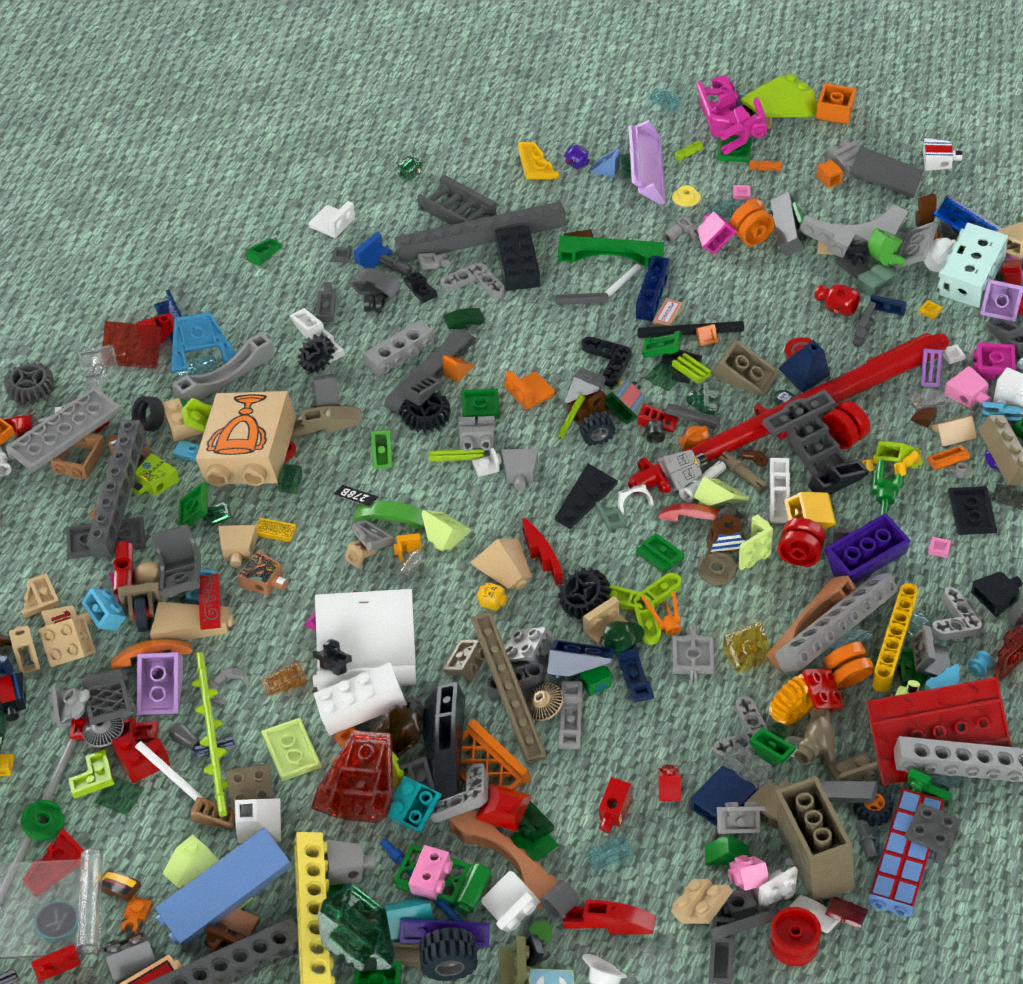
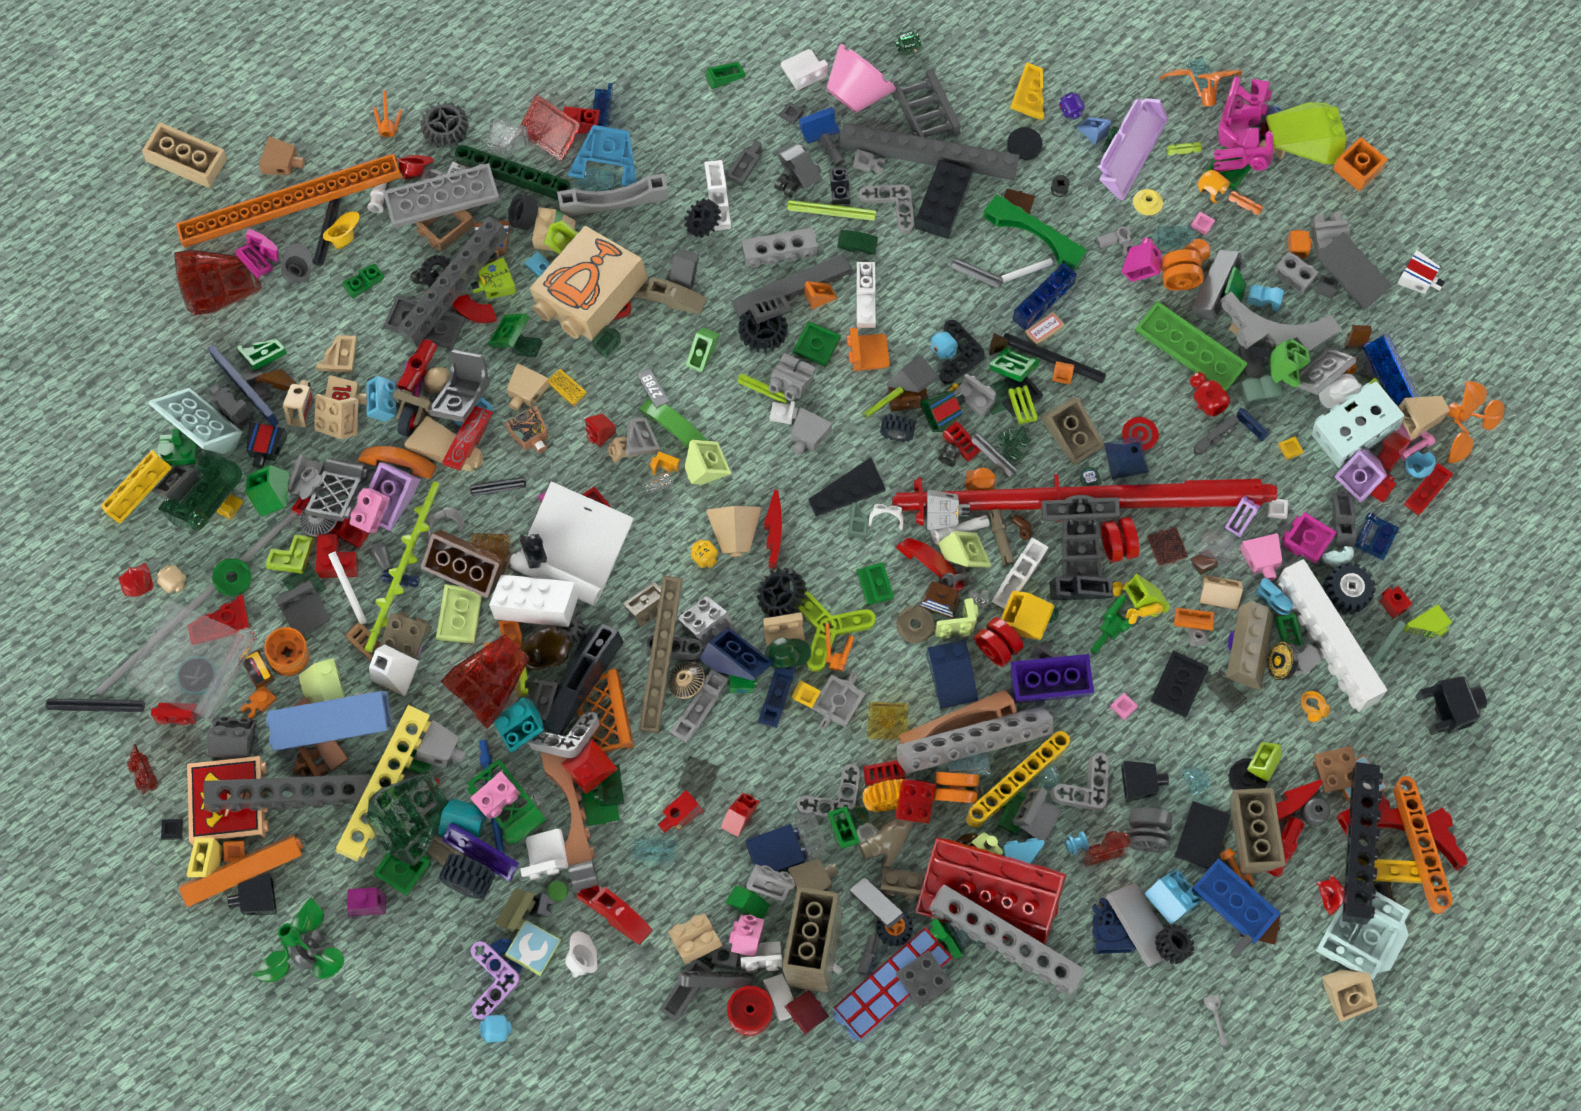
camera: 25 degrees right, 20 degrees up
(25, 530) = (363, 281): none -> green slope
(37, 727) = (268, 489): none -> green slope
(83, 505) = (415, 275): none -> pearl dark grey arm
(84, 491) = (427, 266): none -> black tyre
(121, 390) = (507, 167): none -> dark green beam
(132, 812) = (303, 608): none -> dark grey bracket
(141, 852) = (283, 641): none -> orange wheel
(148, 509) = (474, 311): none -> red tile
(149, 699) = (369, 510): none -> bright pink brick
(260, 632) = (497, 486): none -> black axle
(269, 704) = (463, 563): none -> reddish brown slope
(329, 545) = (599, 429): none -> red slope
(387, 200) = (856, 81): none -> bright pink cone
(425, 306) = (832, 210): none -> lime axle
(497, 349) = (865, 295): none -> white slope
(556, 193) = (1025, 143): none -> black tile
(592, 357) = (943, 345): none -> medium azure head
(603, 770) = (698, 777): none -> clear smoke piece
(607, 212) = (1062, 190): none -> pearl dark grey wheel
(637, 337) = (997, 344): none -> dark brown slope
(650, 378) = (977, 396): none -> light grey bracket
(660, 659) = (805, 694): none -> yellow panel
(681, 106) = (1209, 93): none -> orange plant
(731, 158) = (1213, 183): none -> light orange helmet
(776, 587) = (952, 673): none -> dark blue slope
(779, 680) = (883, 766): none -> red slope
(794, 273) = (1190, 346): none -> bright green plate
(832, 214) = (1260, 296): none -> medium azure leg
(841, 192) = (1293, 275): none -> light grey brick
(872, 194) = (1326, 286): none -> dark grey slope
(886, 419) = (1167, 546): none -> clear red piece

